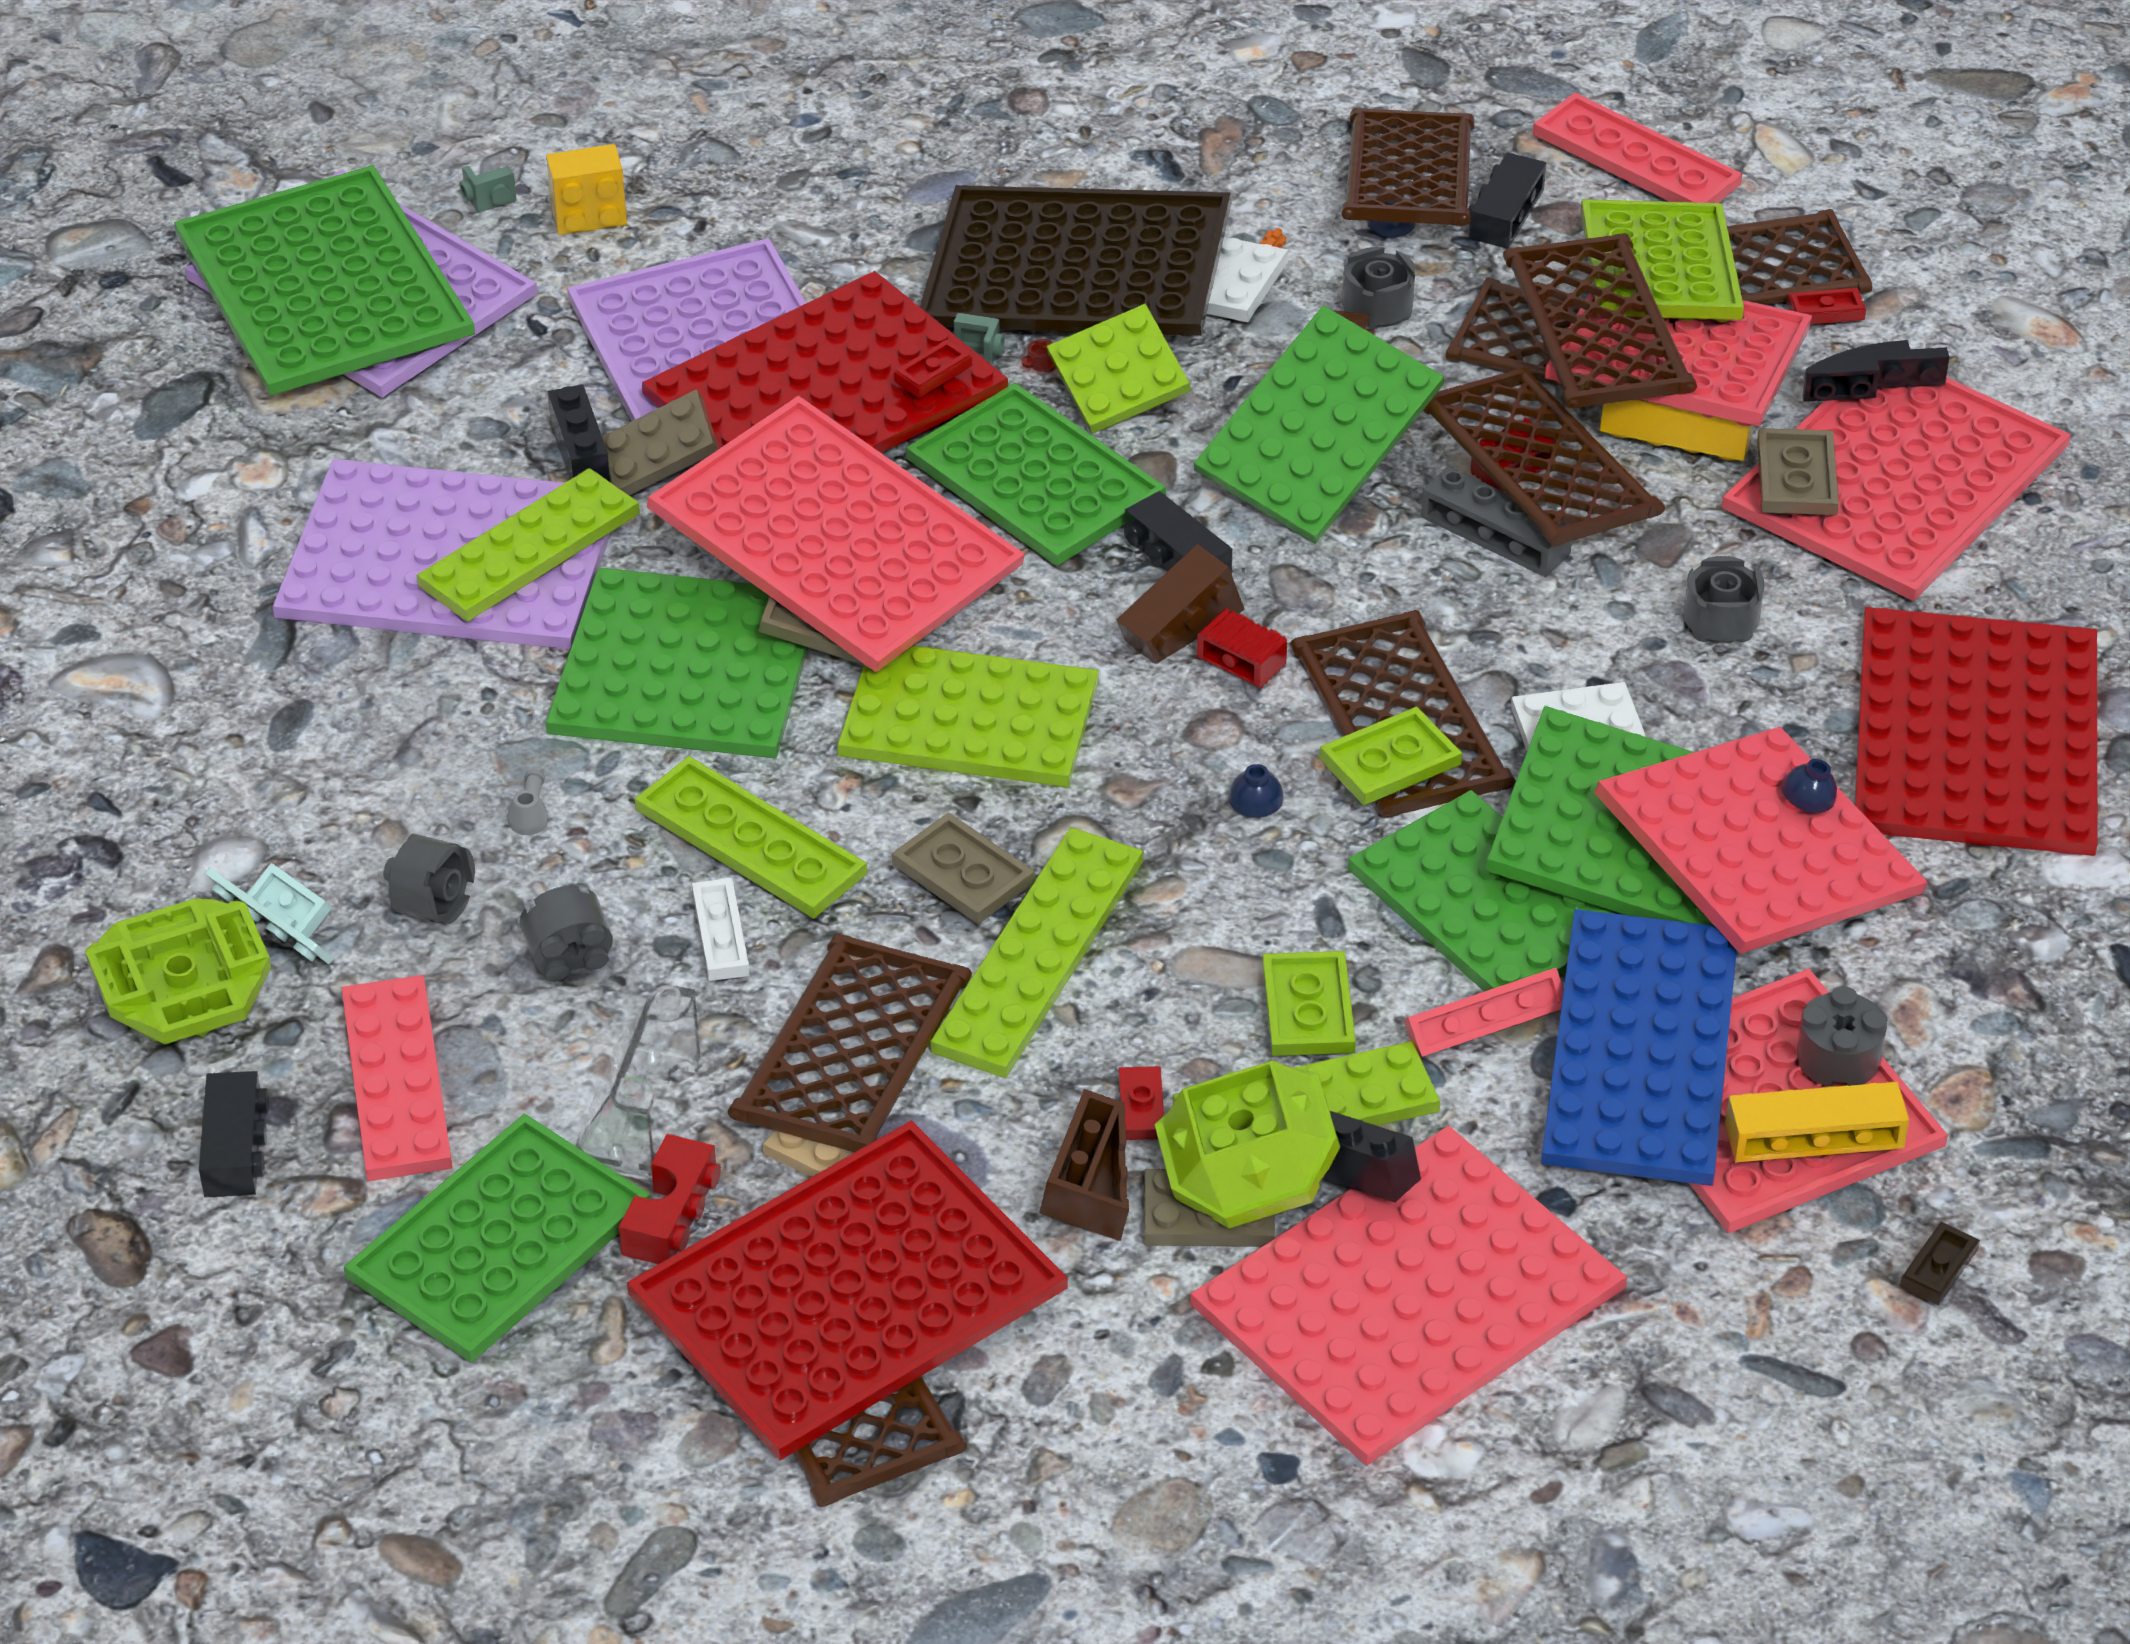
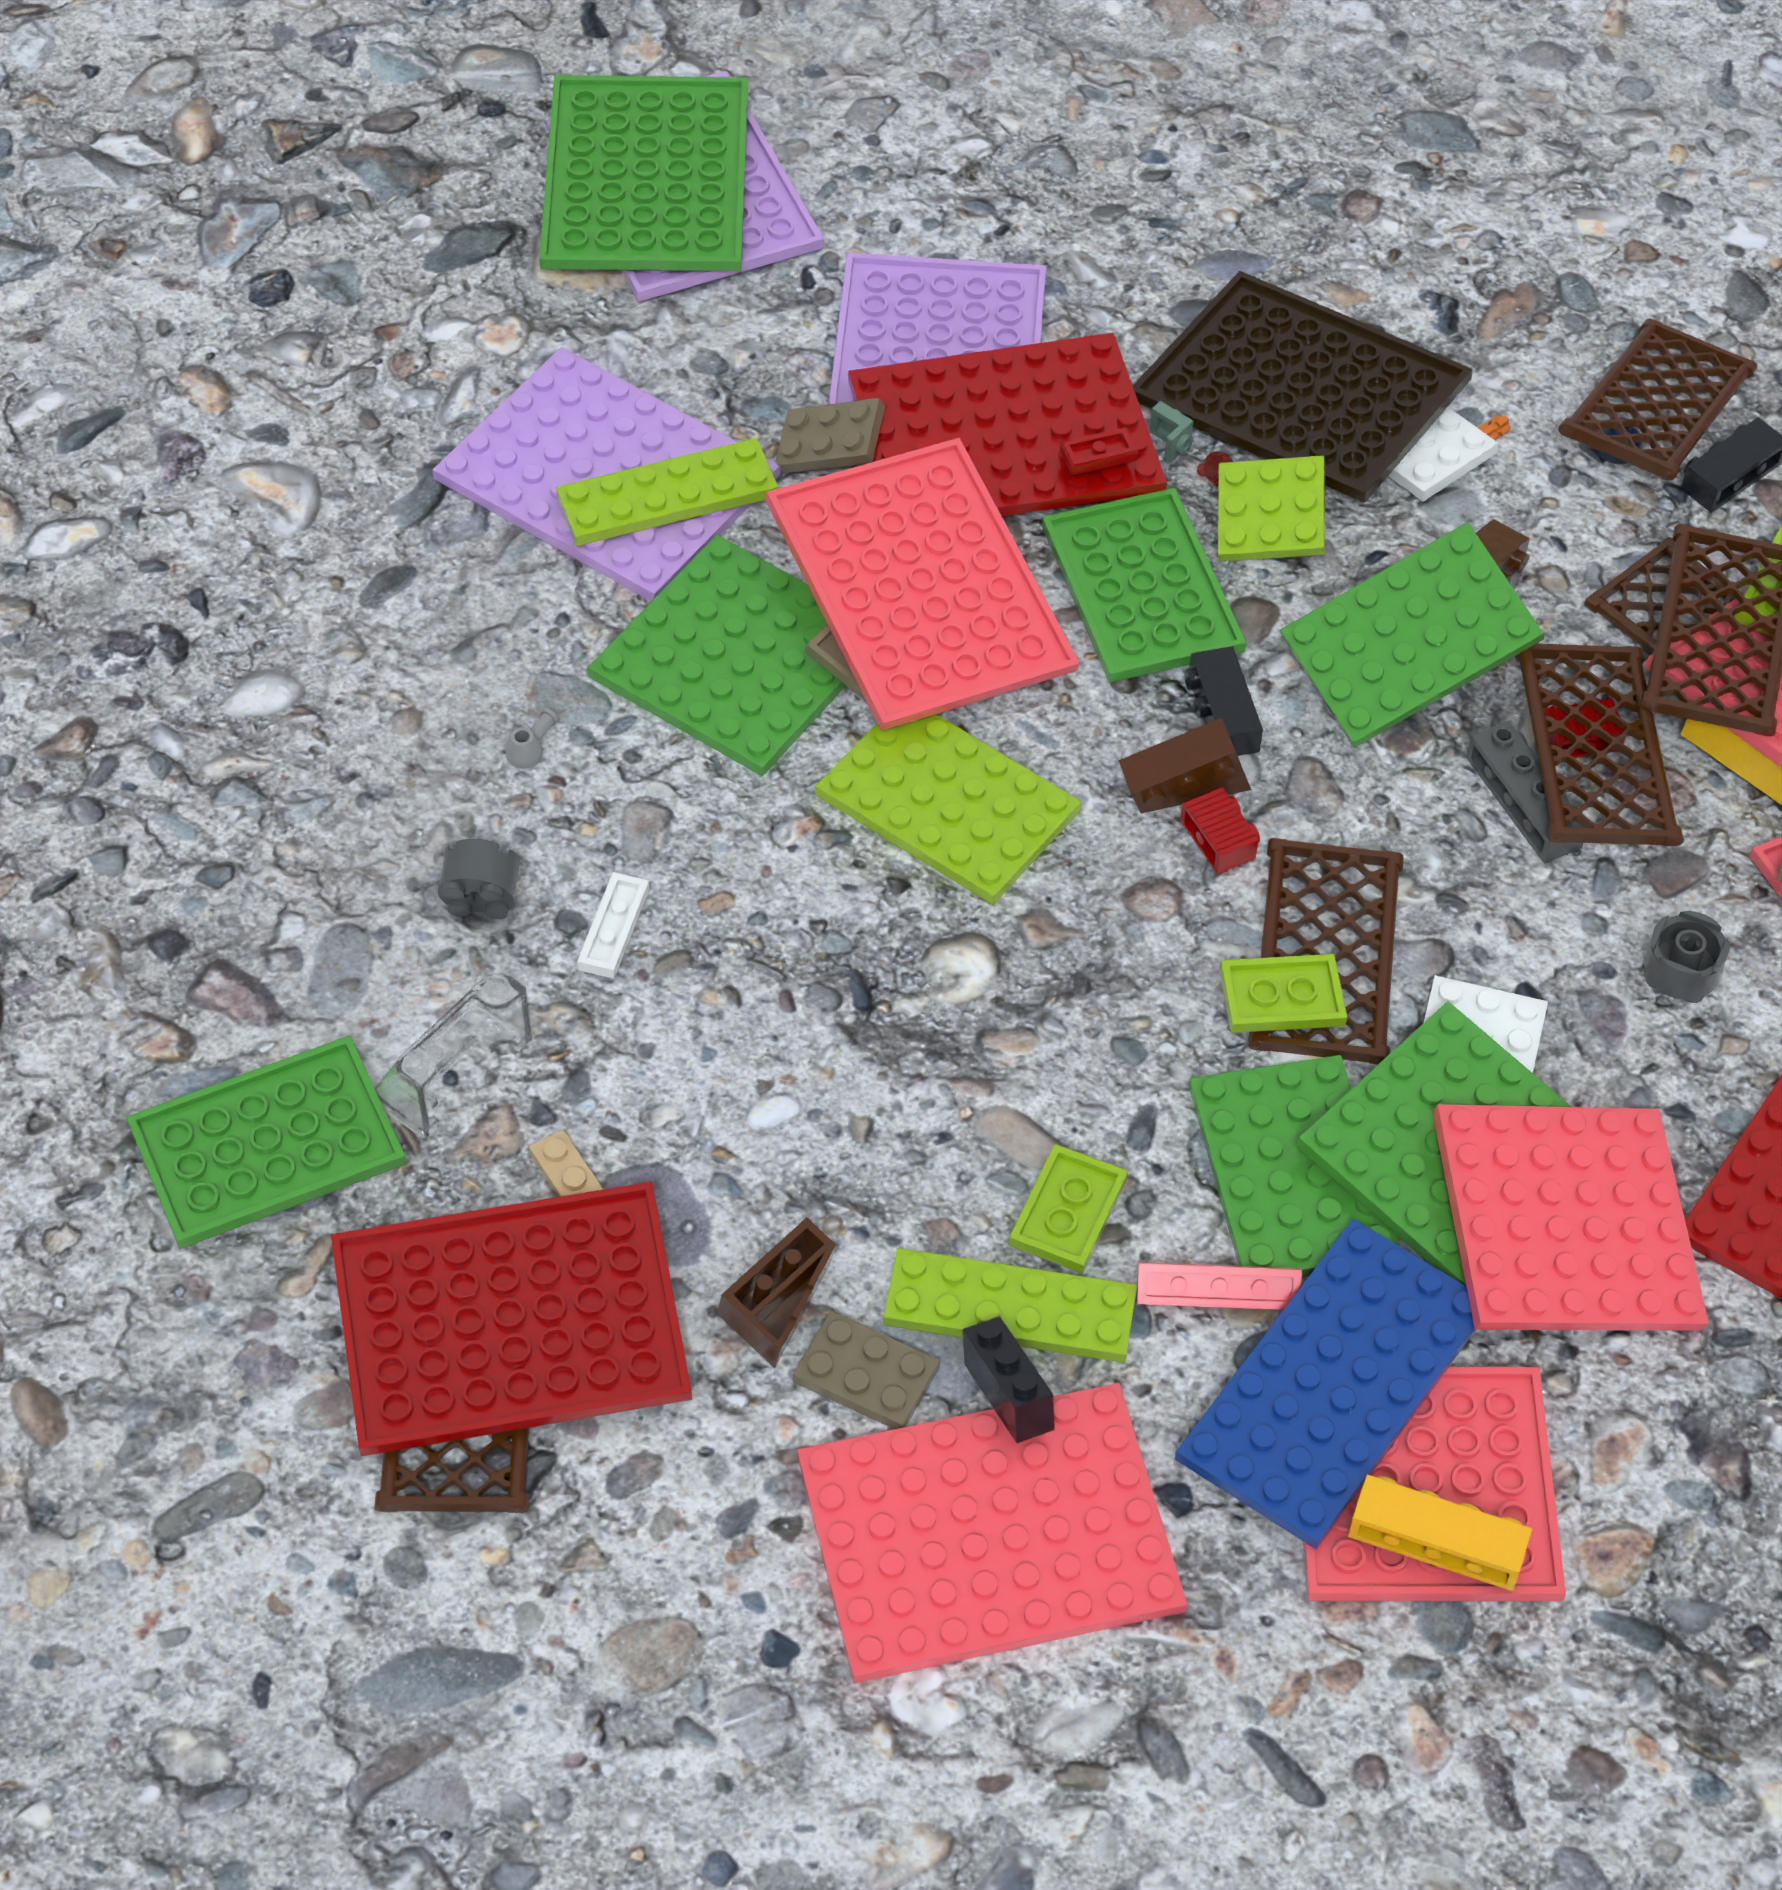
camera: 25 degrees right, 10 degrees up
(181, 968) = (150, 786): lime piece -> none
(232, 1134) = (113, 954): black brick -> none
(286, 906) = (274, 757): light aqua bracket -> none
(396, 1078) = (275, 955): coral plate -> none
(429, 879) = (399, 782): dark grey brick -> none
(488, 189) = (839, 132): sand green bracket -> none
(577, 432) = (771, 400): black brick -> none
(586, 189) = (913, 163): yellow brick -> none
(661, 1227) = (398, 1190): red arch -> none
(751, 836) = (691, 846): lime plate -> none
(807, 1014) = (636, 1039): reddish brown door -> none
(963, 868) = (850, 950): dark tan plate -> none
(1037, 952) = (868, 1057): lime plate -> none
(1143, 1100) = (868, 1243): red plate -> none
(1249, 1143) = (921, 1360): lime piece -> none
(1256, 792) = (1148, 980): dark blue brick -> none
(1379, 286) = (1557, 512): dark grey brick -> none
(1810, 787) = (1640, 1188): dark blue brick -> none
(1841, 1038) = (1516, 1456): dark grey brick -> none
(1939, 1263) = (1482, 1719): dark brown plate -> none

